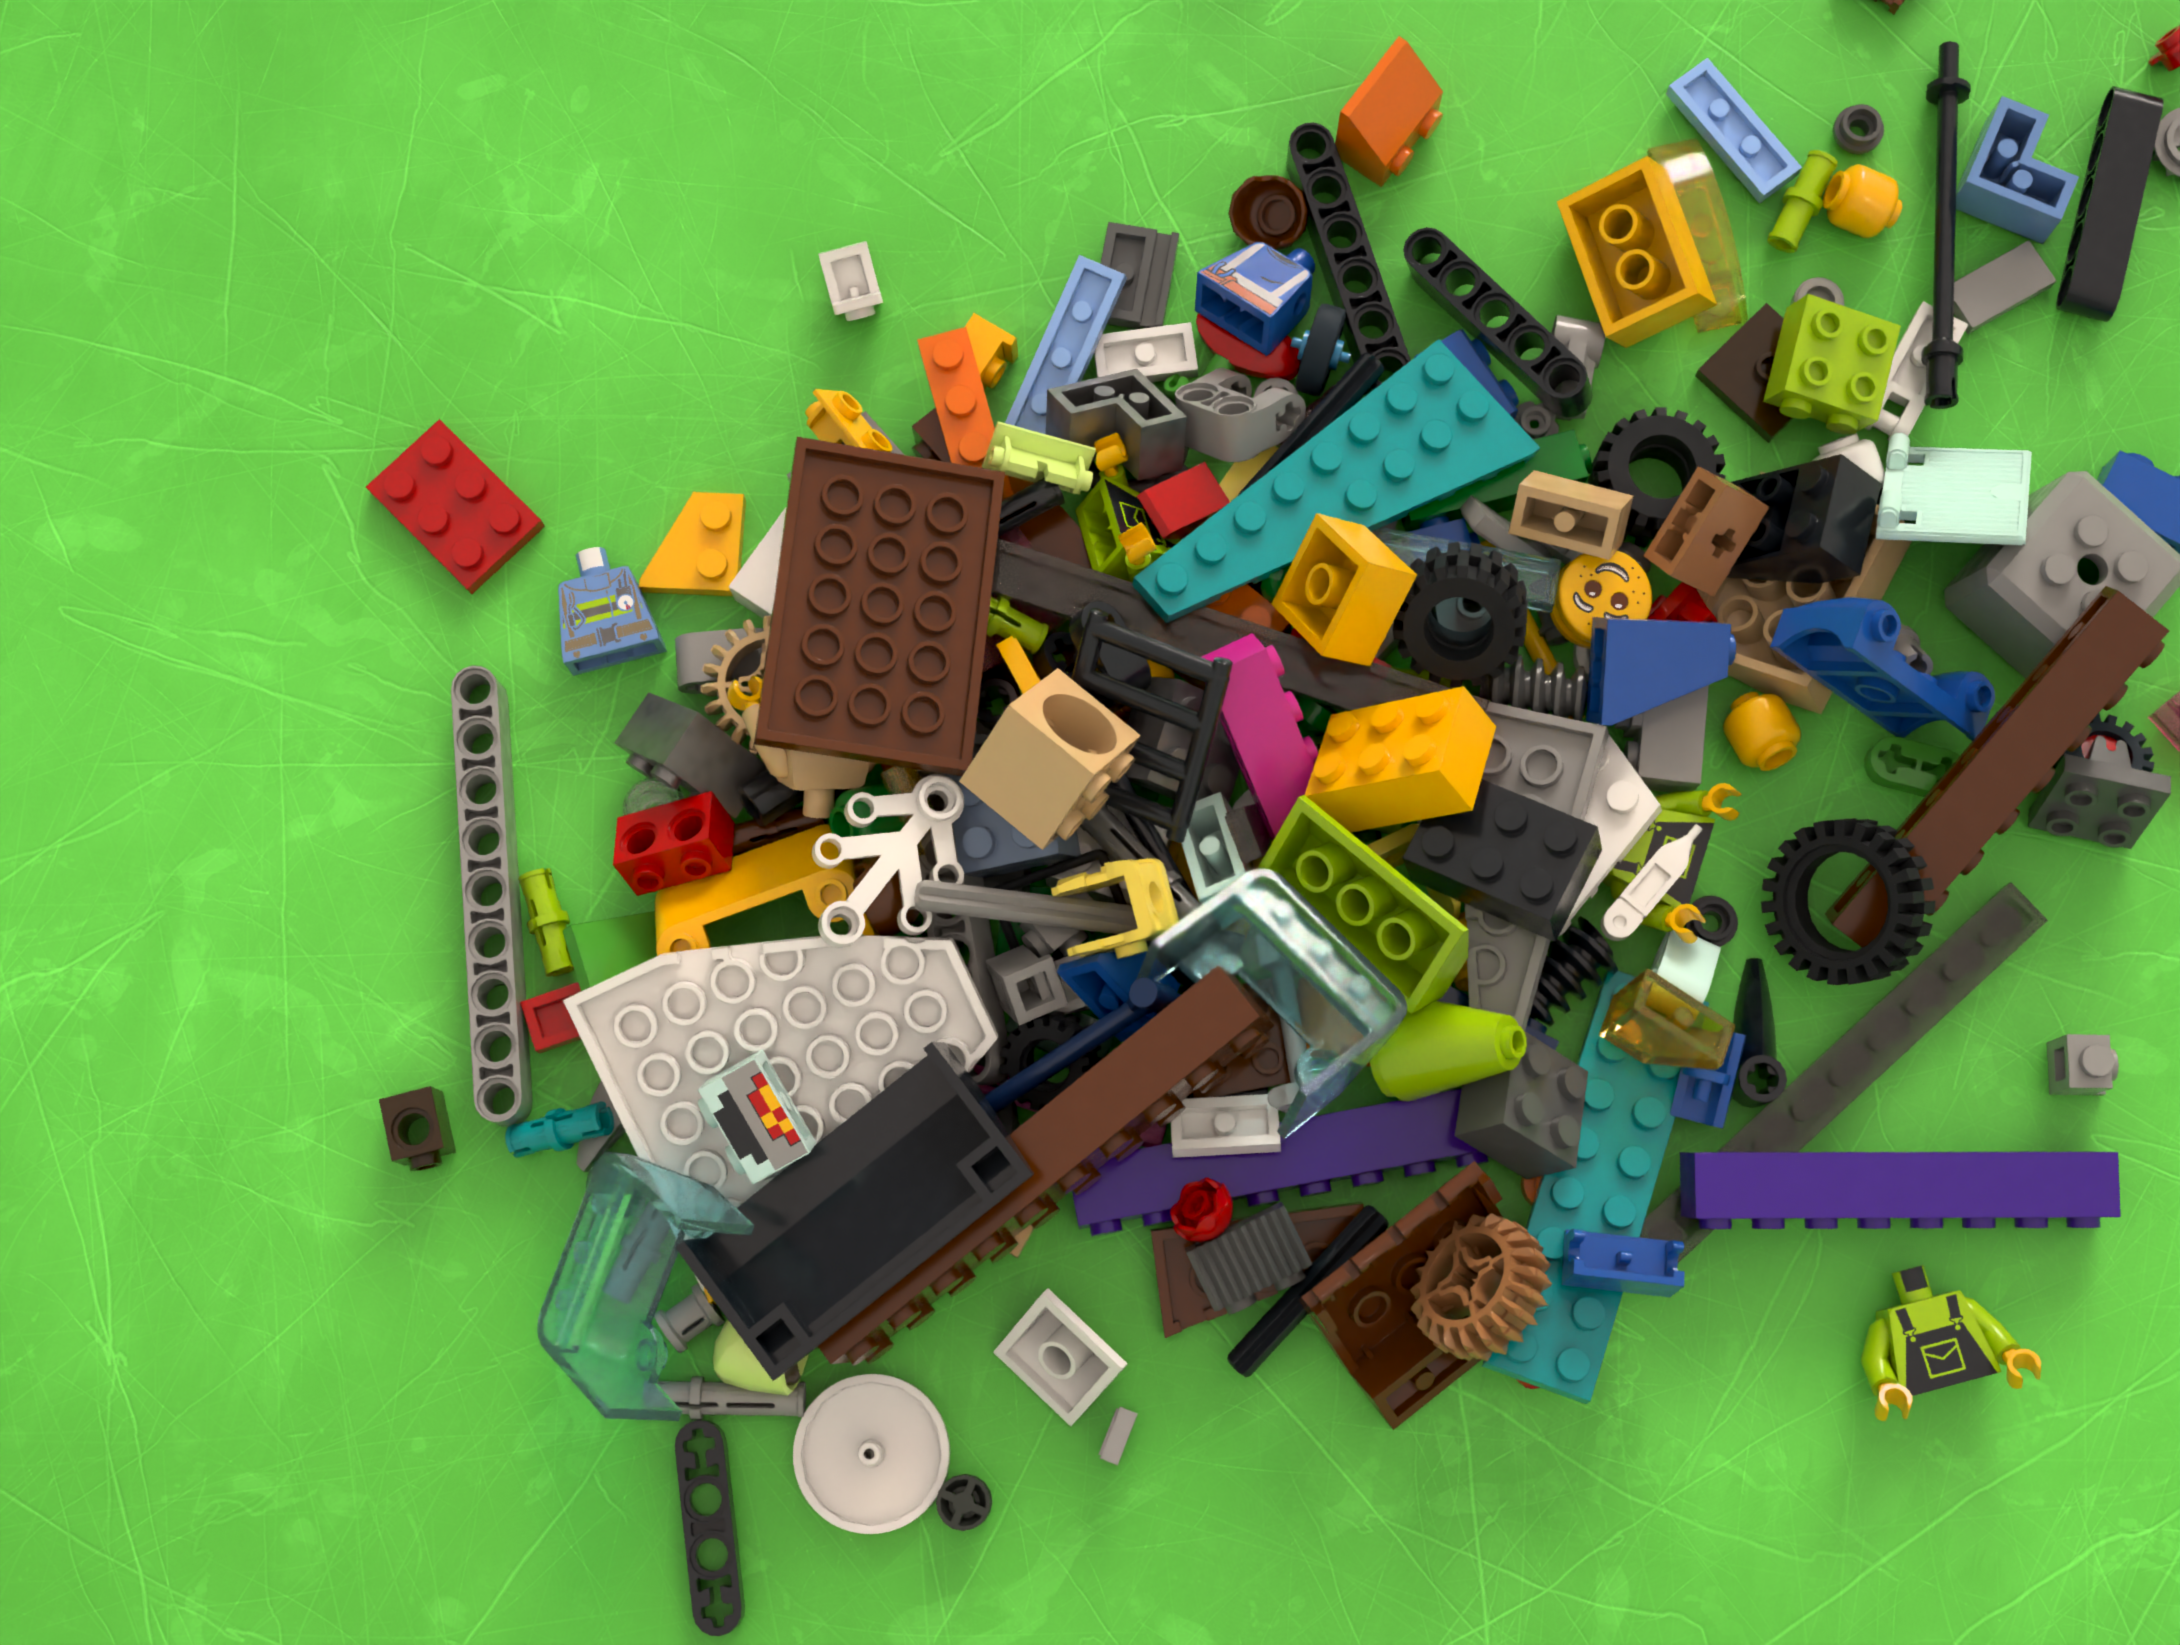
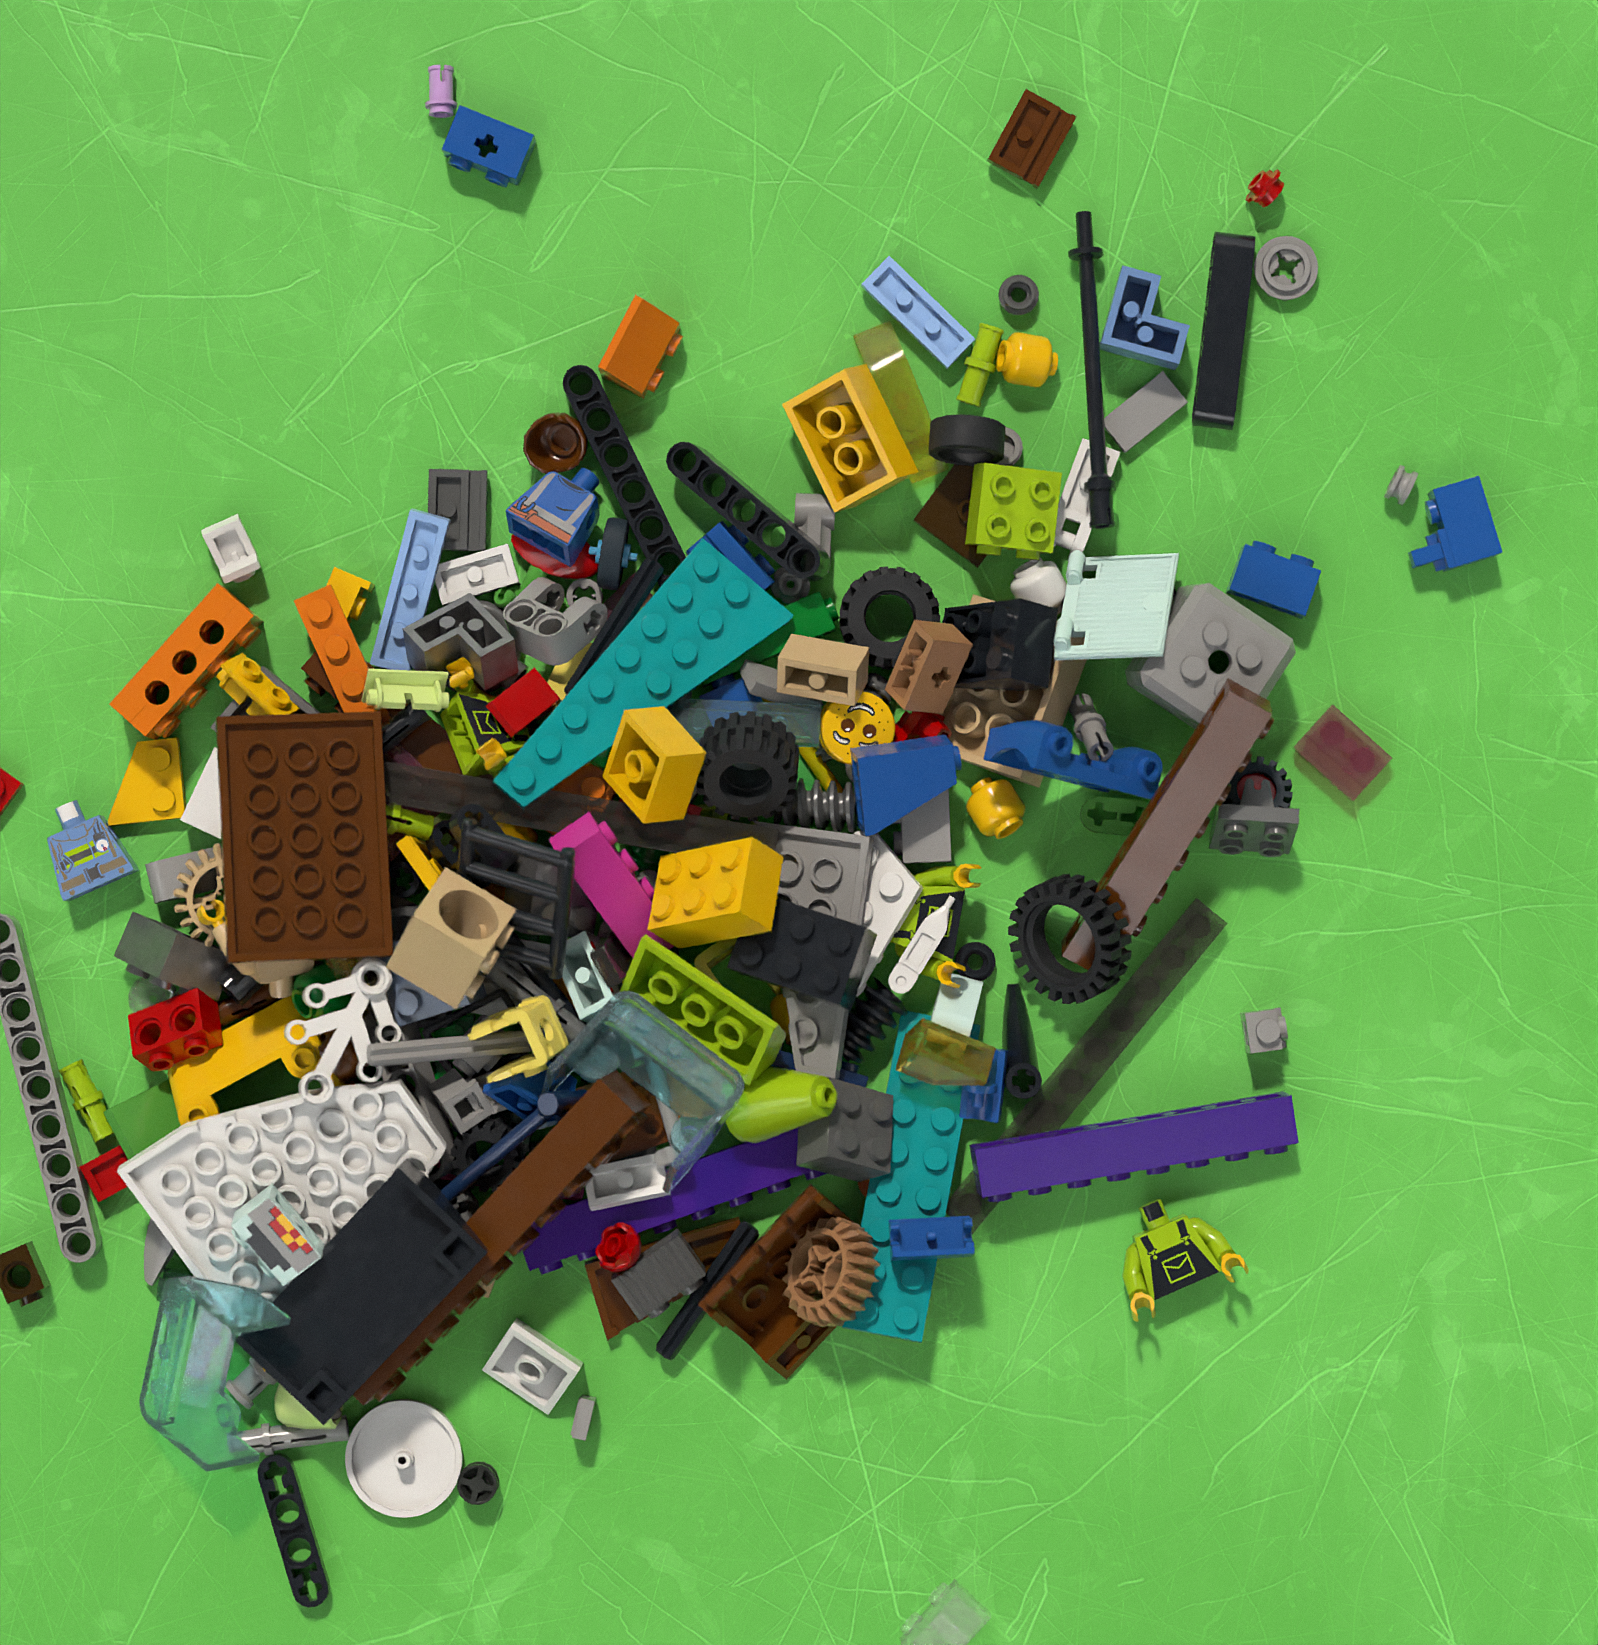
camera: 15 degrees left, 10 degrees up
(559, 1129) = (128, 1259): teal pin -> none
(756, 397) = (192, 638): none -> orange brick
(1786, 253) = (966, 439): none -> black tyre

